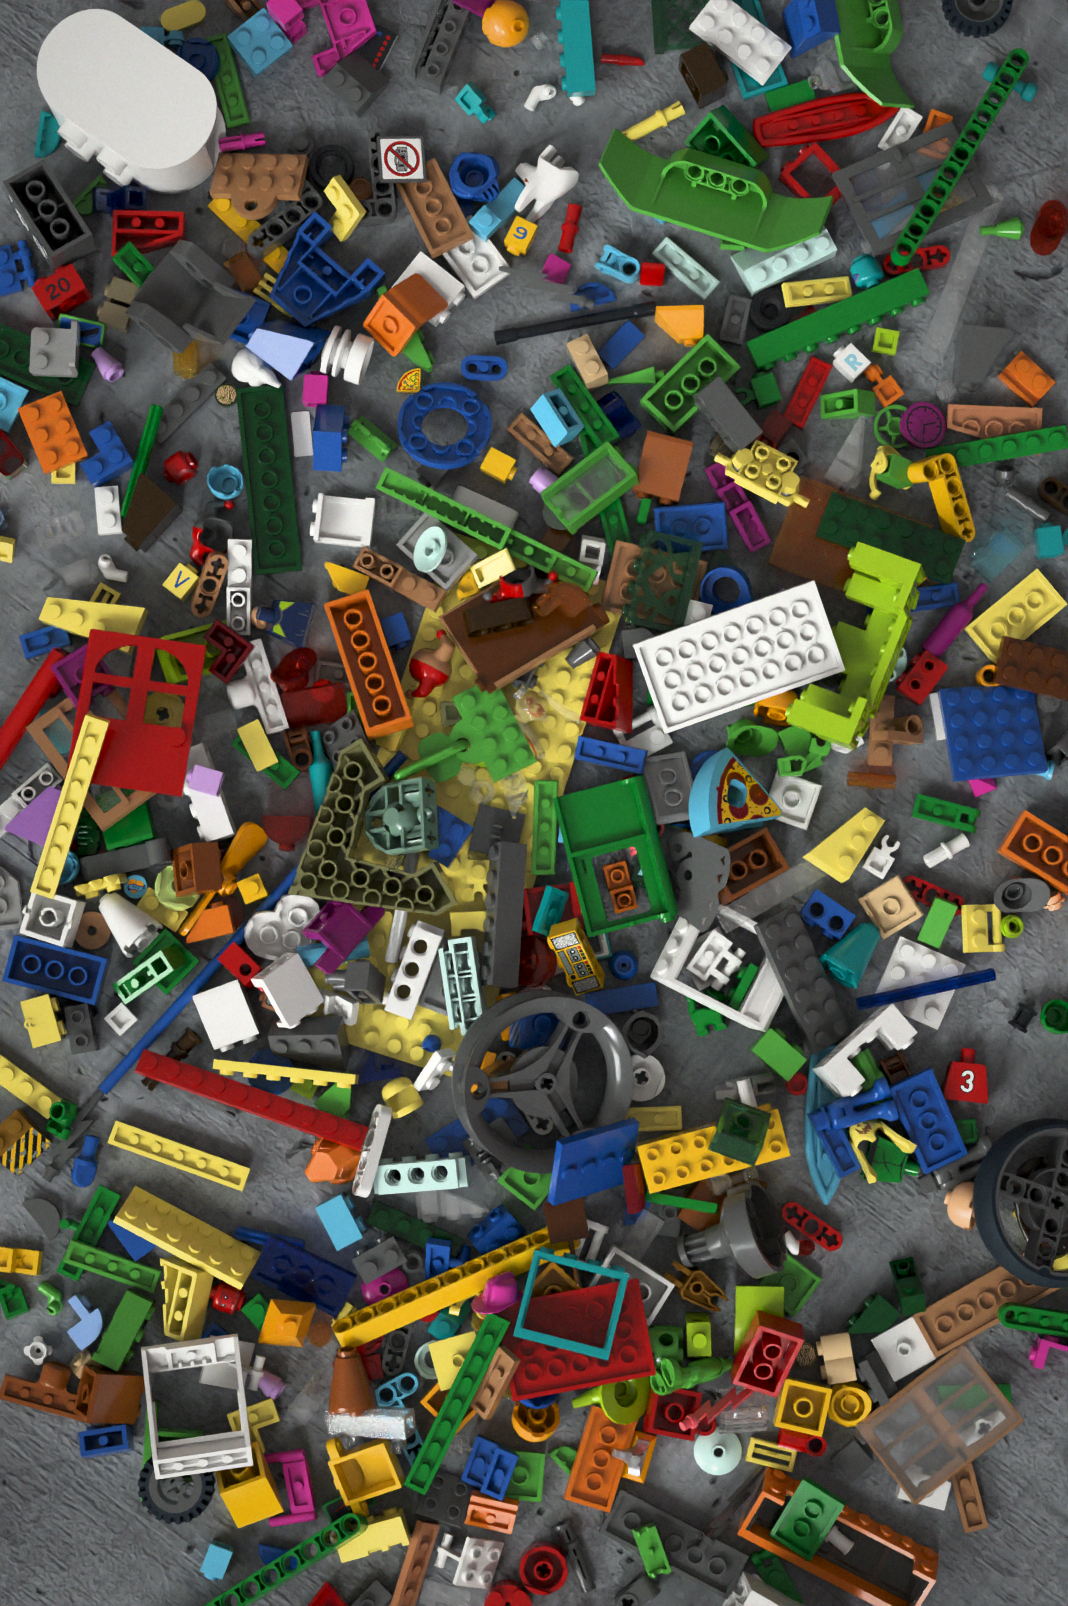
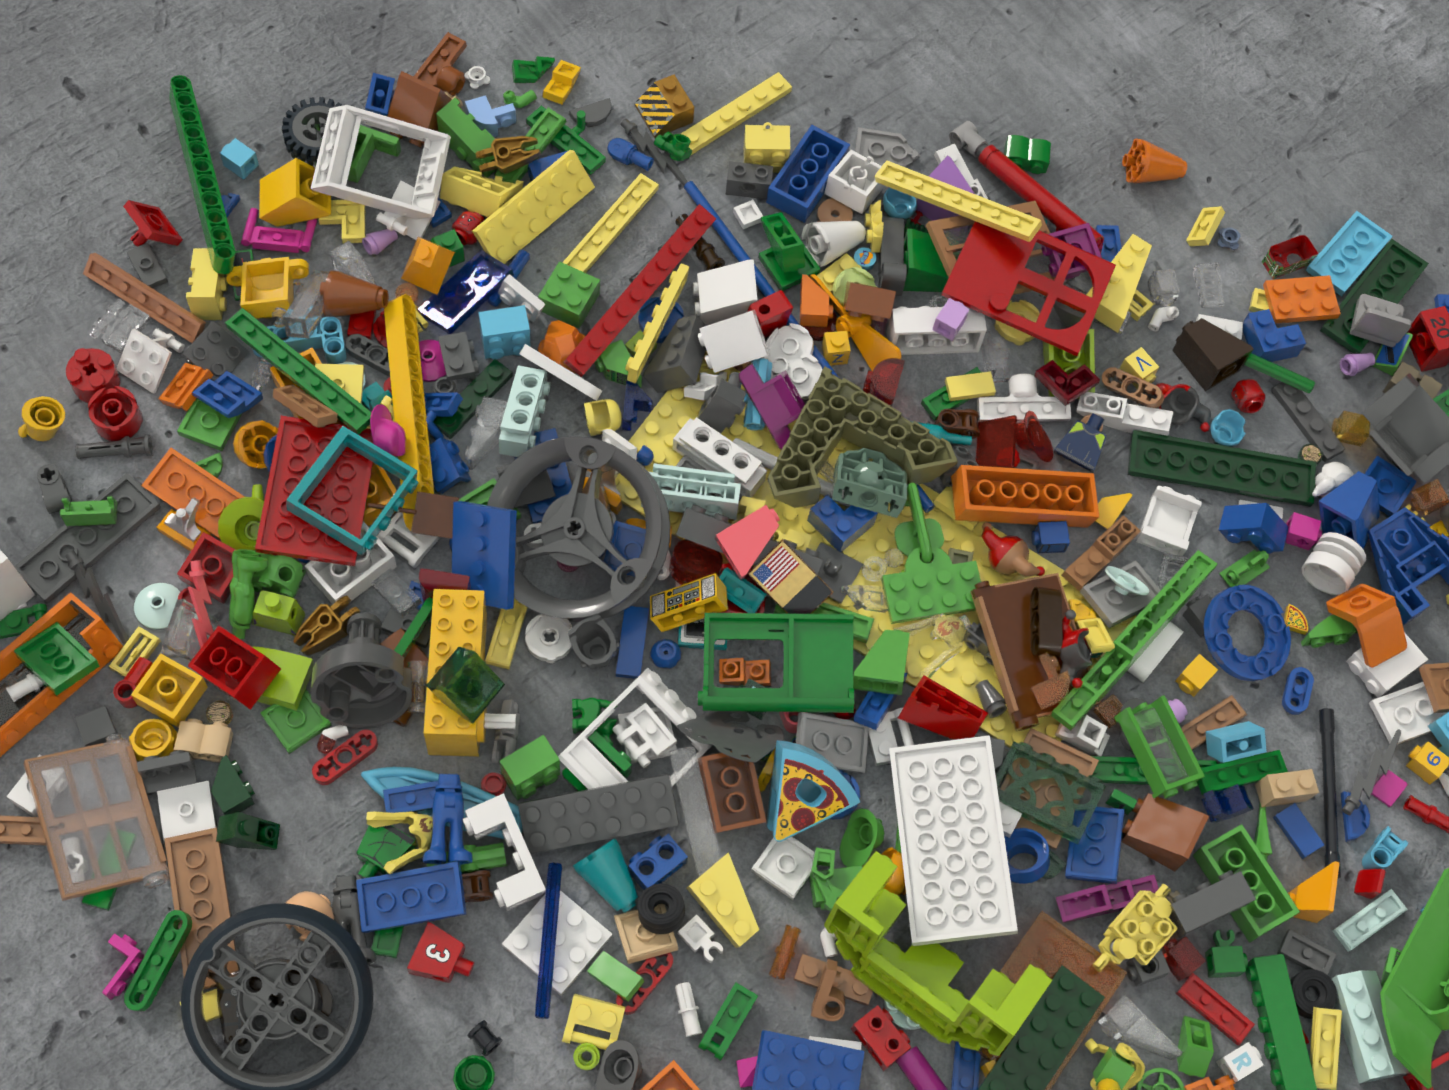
camera: 100 degrees right, 20 degrees down
(138, 1282) = (509, 154): none -> pearl gold hinge
(274, 1171) = (569, 294): none -> bright green brick
(299, 1224) = (516, 294): none -> white plate
(508, 917) = (747, 539): none -> coral slope
(530, 866) = (790, 580): none -> tile
(581, 757) = (884, 664): none -> bright green slope
(860, 908) = (665, 922): none -> black tyre

